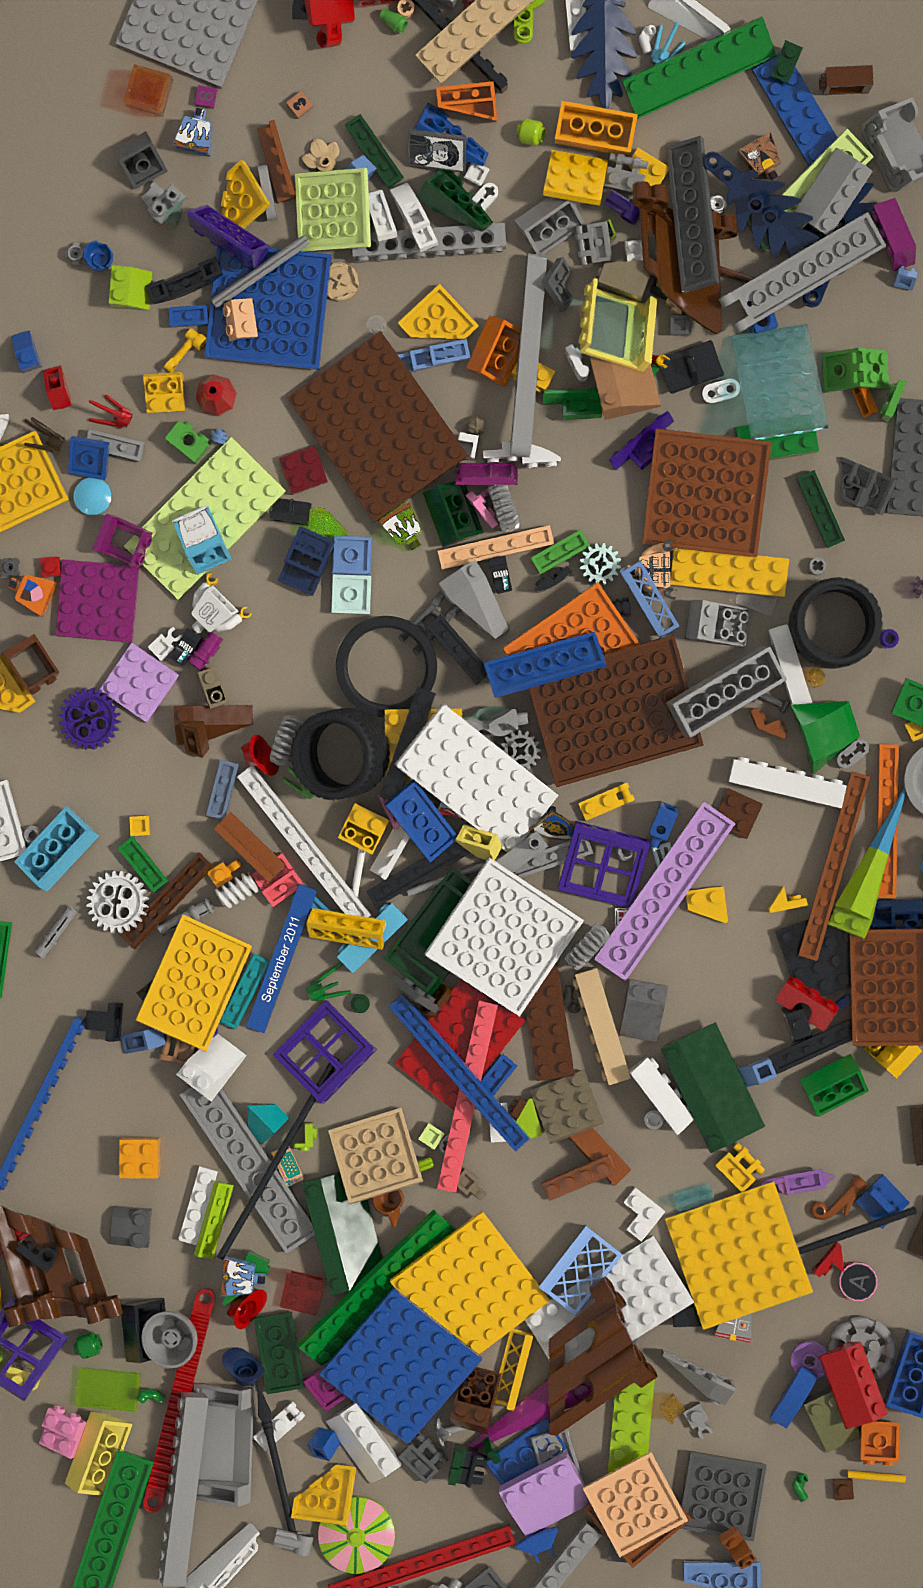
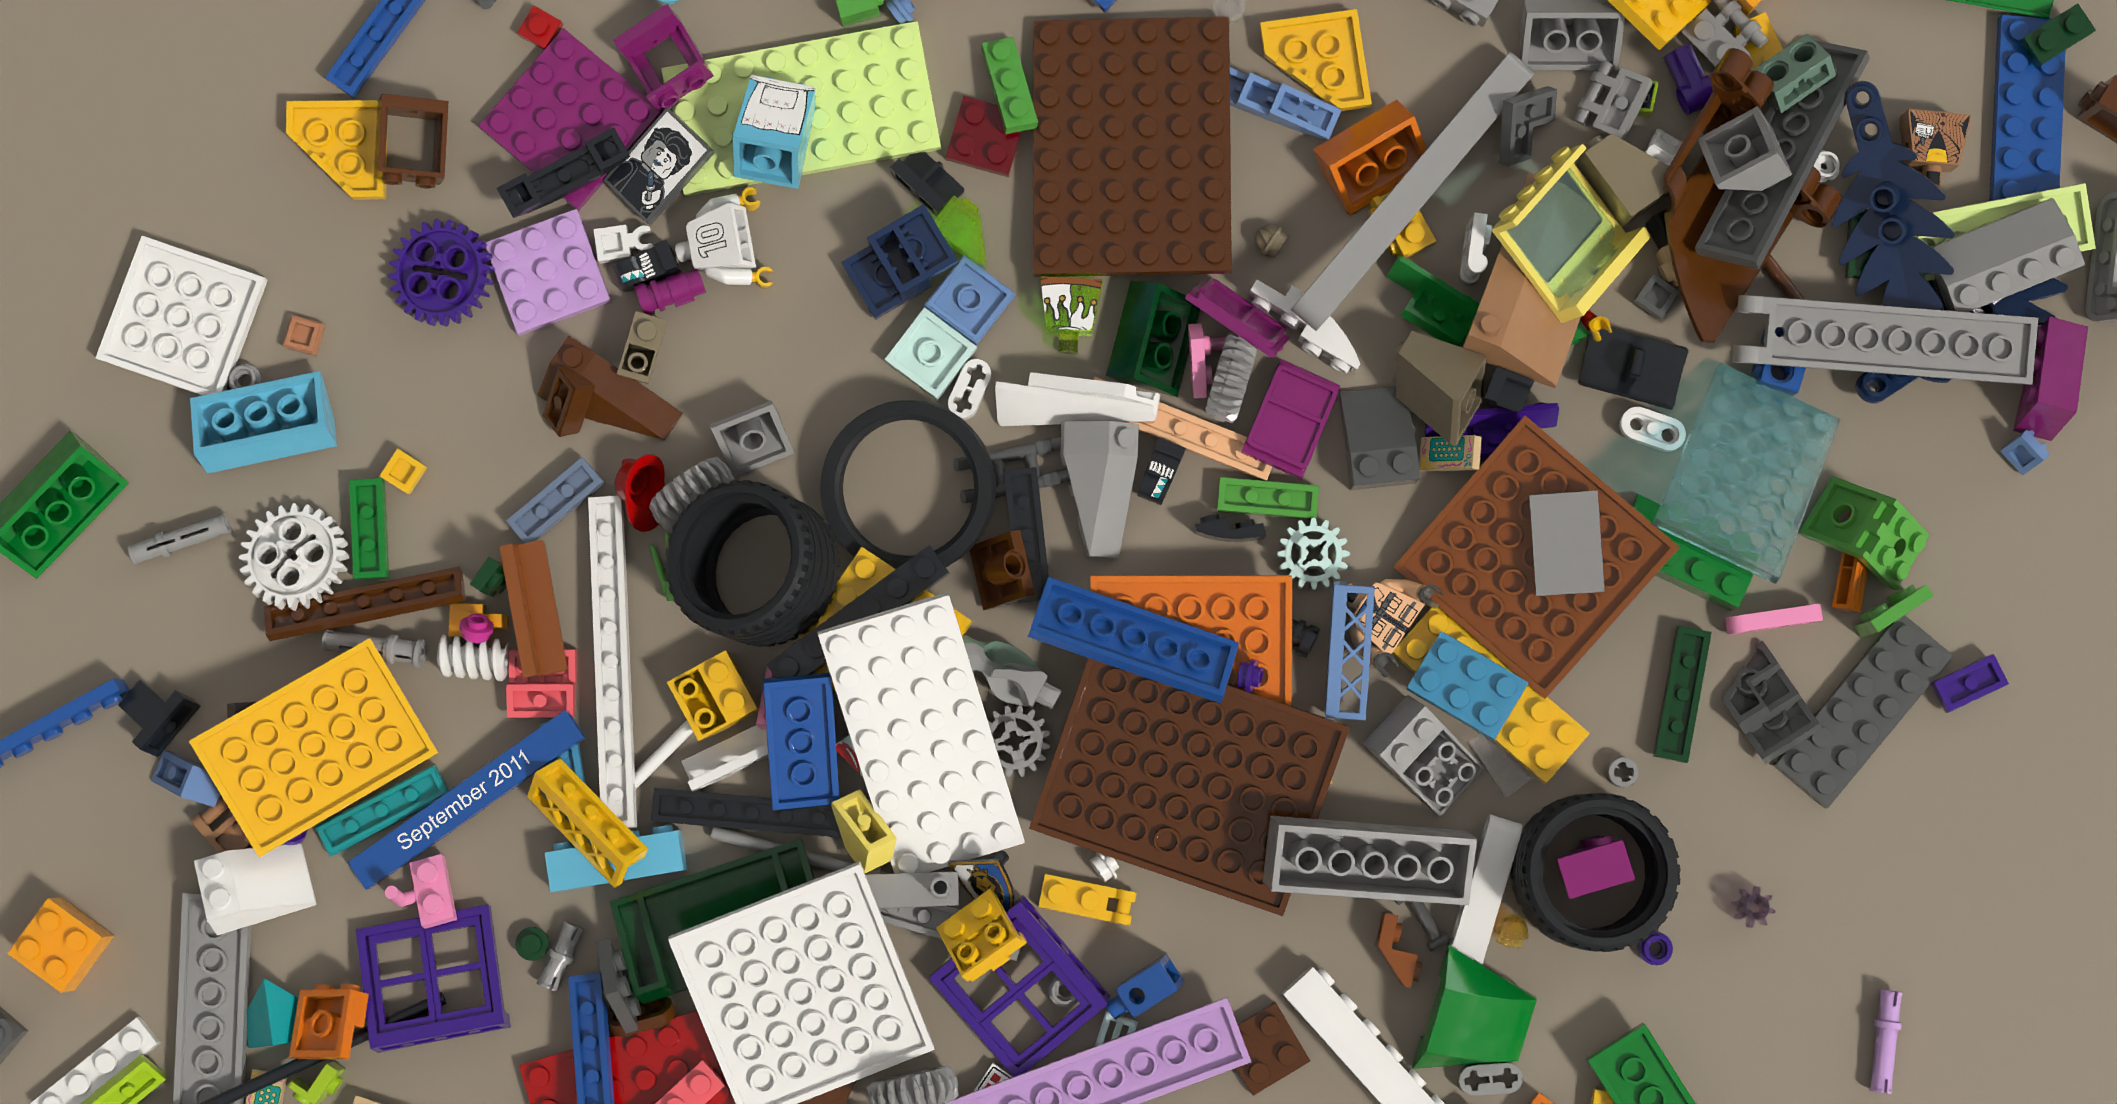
camera: 40 degrees right, 5 degrees down
(33, 592) = (490, 46): orange torso -> none
(44, 794) = (303, 335): none -> nougat tile
(116, 630) = (565, 175): none -> black slope
(157, 594) = (659, 166): none -> tile
(220, 846) = (490, 578): none -> dark green plate
(229, 875) = (476, 628): none -> dark pink plate
(291, 1105) = (327, 1021): none -> orange plate
(295, 694) = (752, 438): none -> light grey slope
(295, 1013) = (430, 892): none -> bright pink plate
(298, 437) = (1009, 85): none -> bright green plate
(317, 991) = (484, 882): green plant -> none
(377, 1000) = (560, 956): none -> light grey pin
(386, 597) = (962, 386): none -> white beam
(433, 571) = (1061, 398): none -> white wedge
(458, 674) = (1002, 570): none -> reddish brown plate
(469, 443) = (1245, 259): white panel -> none
(545, 506) = (1290, 419): none -> magenta piece
(568, 853) = (980, 936): none -> yellow plate
(593, 485) = (1378, 439): none -> dark grey slope
(603, 780) = (1104, 866): none -> white plate
(605, 441) = (1439, 383): none -> dark tan slope
(610, 643) = (1250, 675): none -> dark purple plate
(632, 470) = (1440, 455): none -> tile
(639, 421) = (1507, 390): none -> black panel
(674, 172) = (1797, 72): none -> sand green brick
(675, 229) = (1745, 153): none -> light grey slope
(716, 576) = (1467, 686): none -> dark azure plate
(717, 476) = (1567, 543): none -> light grey tile
(833, 621) = (1595, 866): none -> magenta wedge
(840, 443) = (1773, 619): none -> bright pink beam

